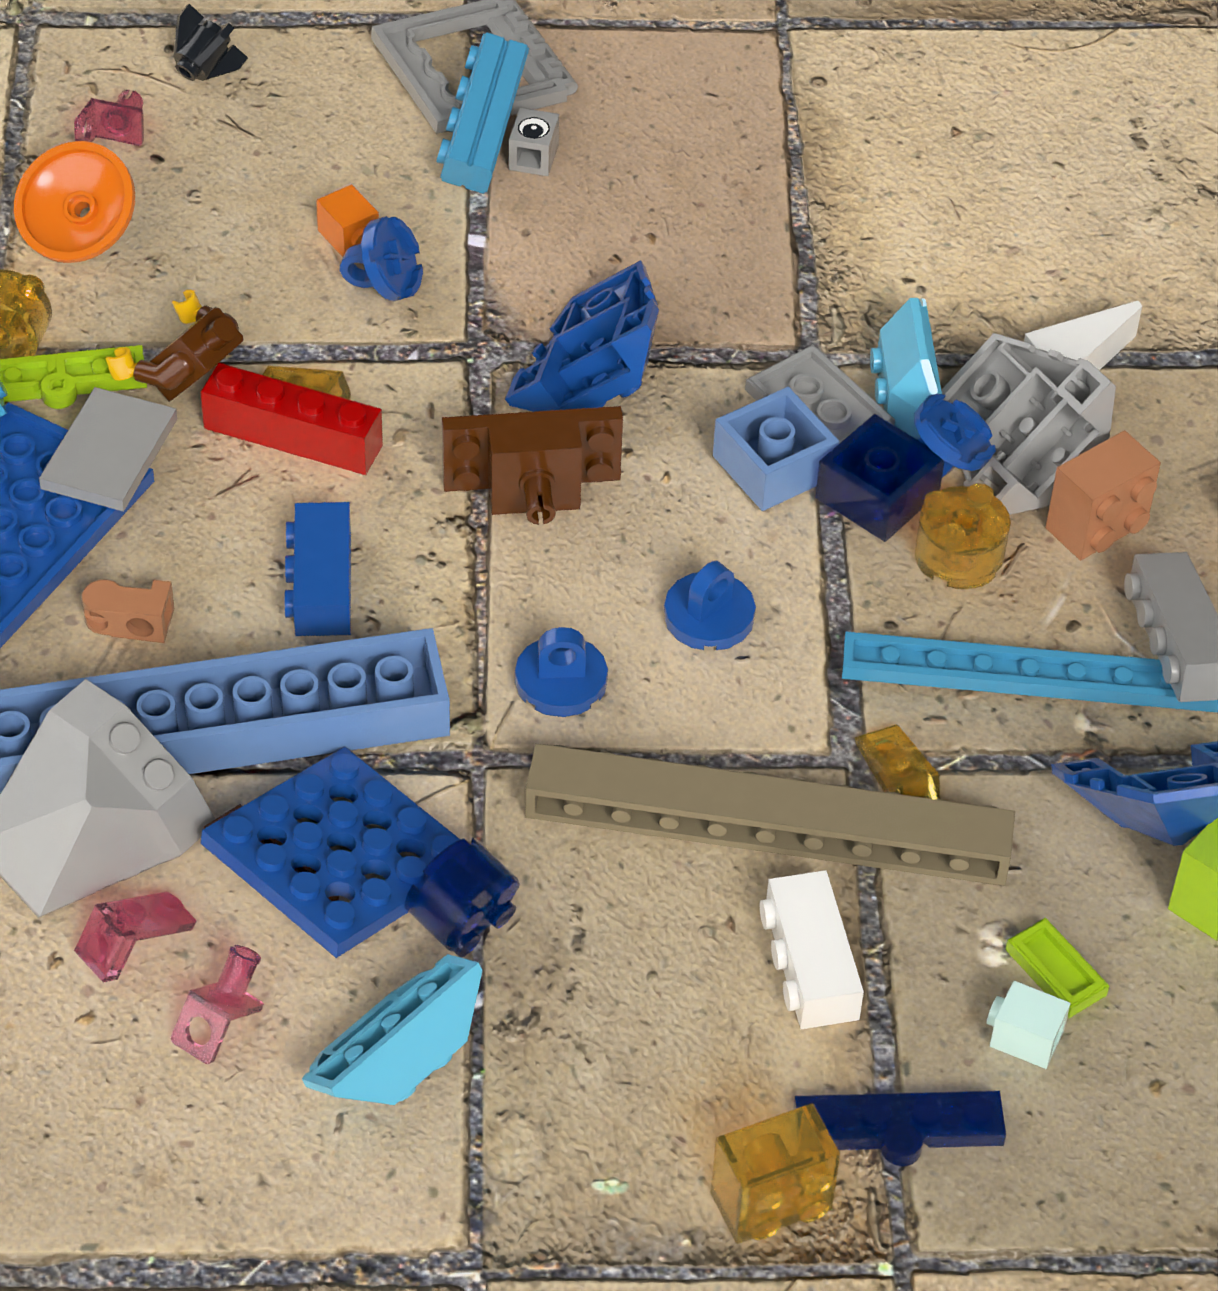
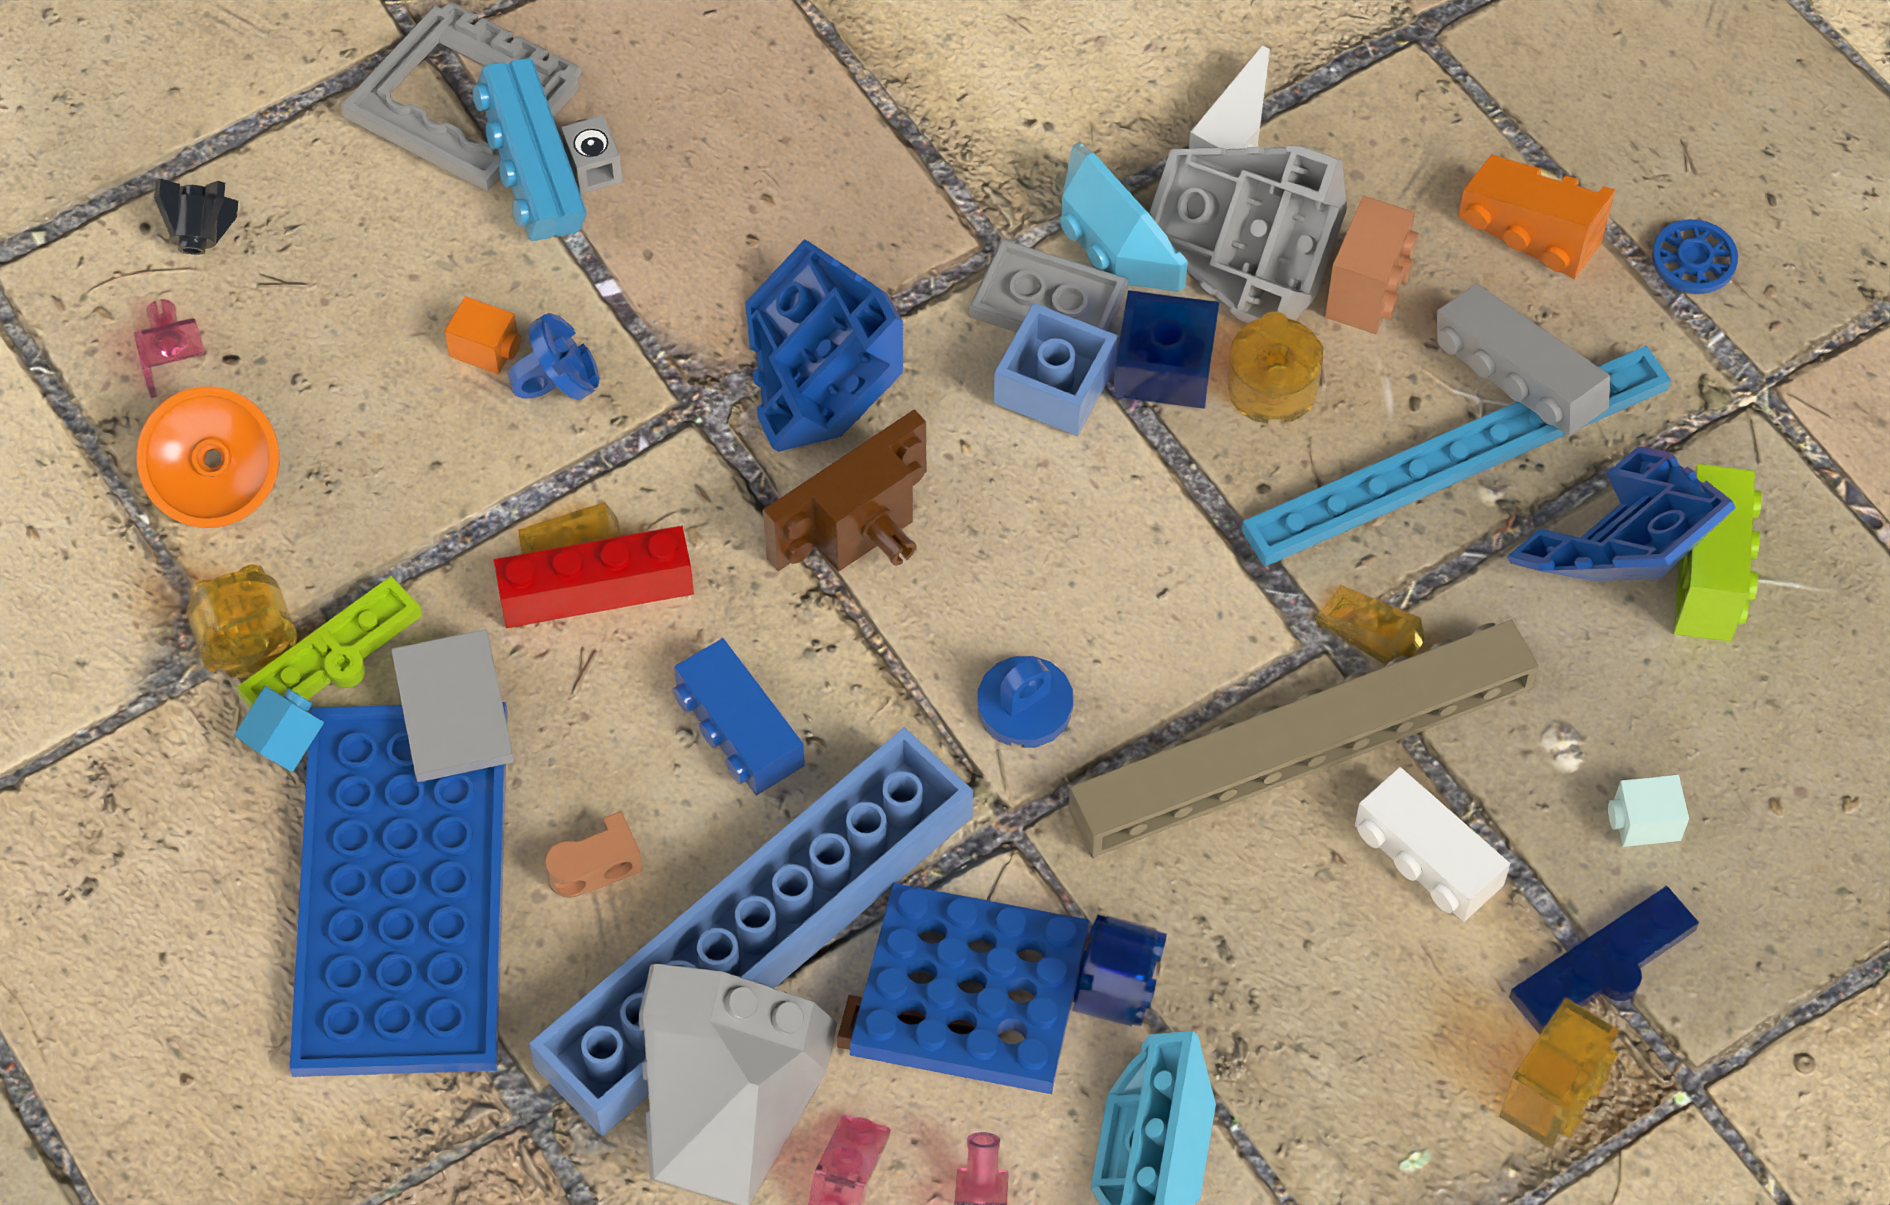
camera: 30 degrees left, 10 degrees up
(188, 355) = (453, 559): reddish brown torso -> none
(710, 608) = (1105, 563): blue tile -> none
(954, 433) = (1209, 272): blue tile -> none
(1057, 966) = (1628, 742): lime tile -> none

